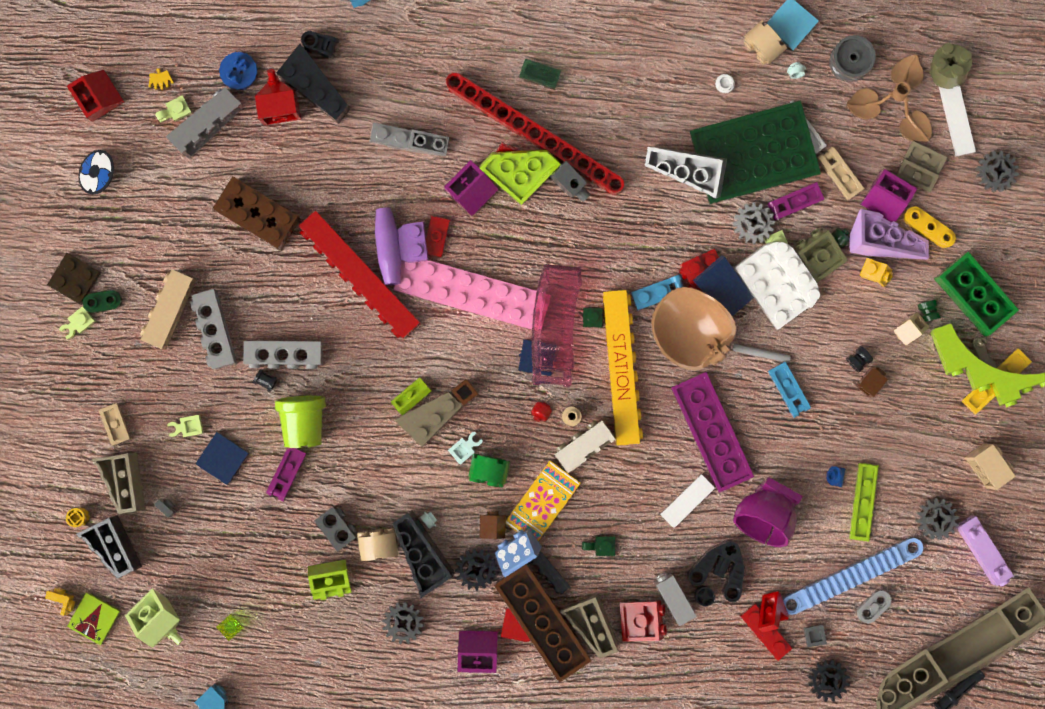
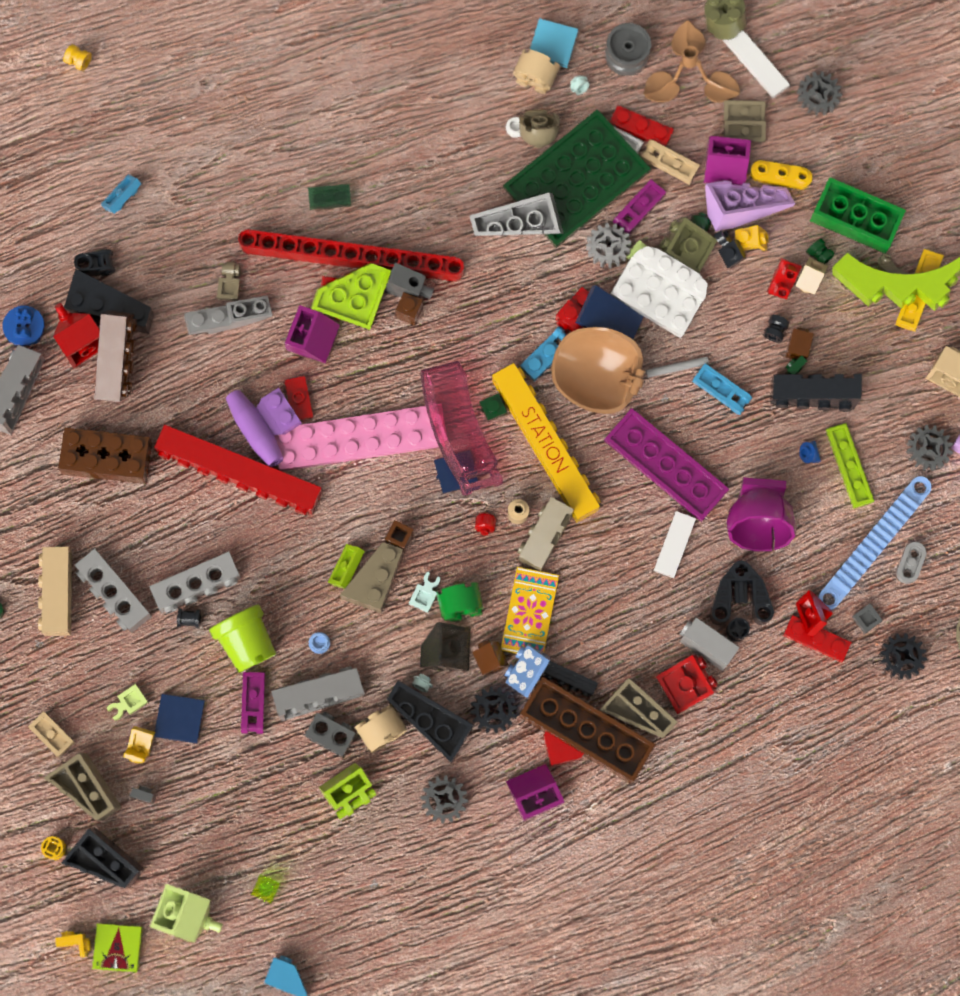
camera: 30 degrees left, 10 degrees down
(180, 466) = (139, 745): none -> yellow bracket
(298, 135) = (114, 356): none -> brick
(340, 491) = (317, 693): none -> light grey wedge
(361, 448) = (319, 643): none -> light blue plate
(421, 115) = (229, 287): none -> dark tan plate
(461, 502) = (446, 648): none -> clear smoke slope
(561, 202) = (409, 308): none -> reddish brown brick
(603, 546) = (611, 627): dark green plate -> none
(743, 94) = (539, 128): none -> dark tan cylinder
(831, 131) = (640, 126): none -> red plate
(854, 276) = (732, 251): none -> black plate
(858, 399) = (796, 366): none -> dark green plate
(866, 429) = (816, 391): none -> black wedge
(886, 320) = (784, 278): none -> red hips

